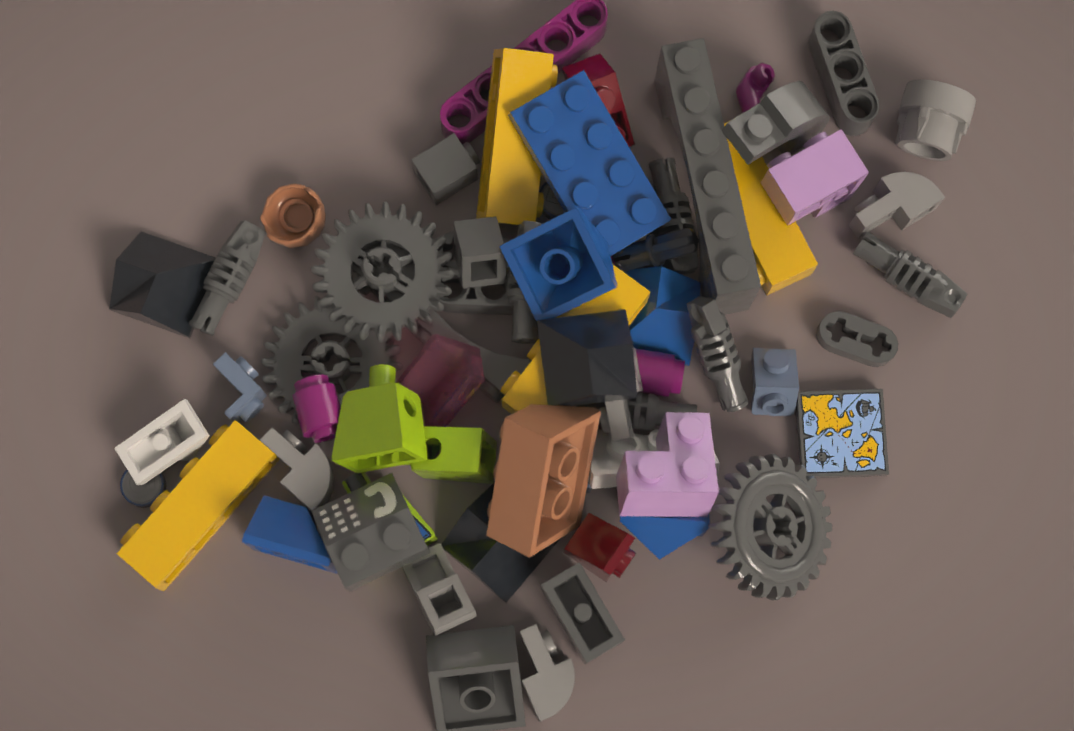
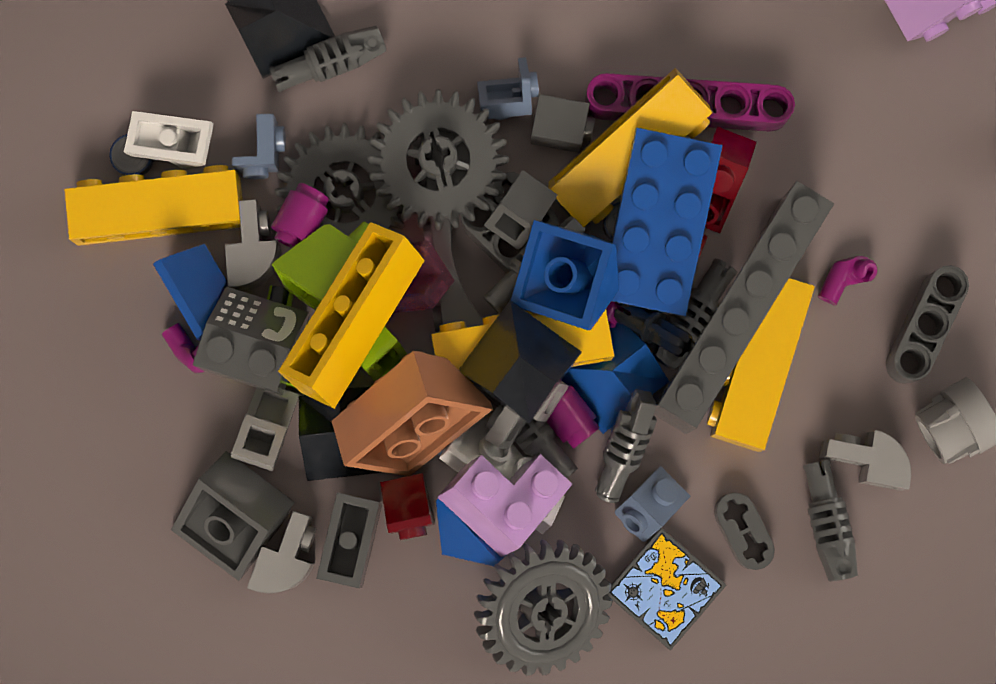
camera: 45 degrees right, 5 degrees up
(293, 216) = (416, 57): nougat hair -> none
(321, 591) = (181, 346): none -> magenta arm
(390, 181) = (509, 96): none -> sand blue bracket
(431, 438) = (352, 315): none -> yellow brick
(780, 121) = (840, 318): dark grey arch -> none
(815, 177) = (821, 383): lavender brick -> none

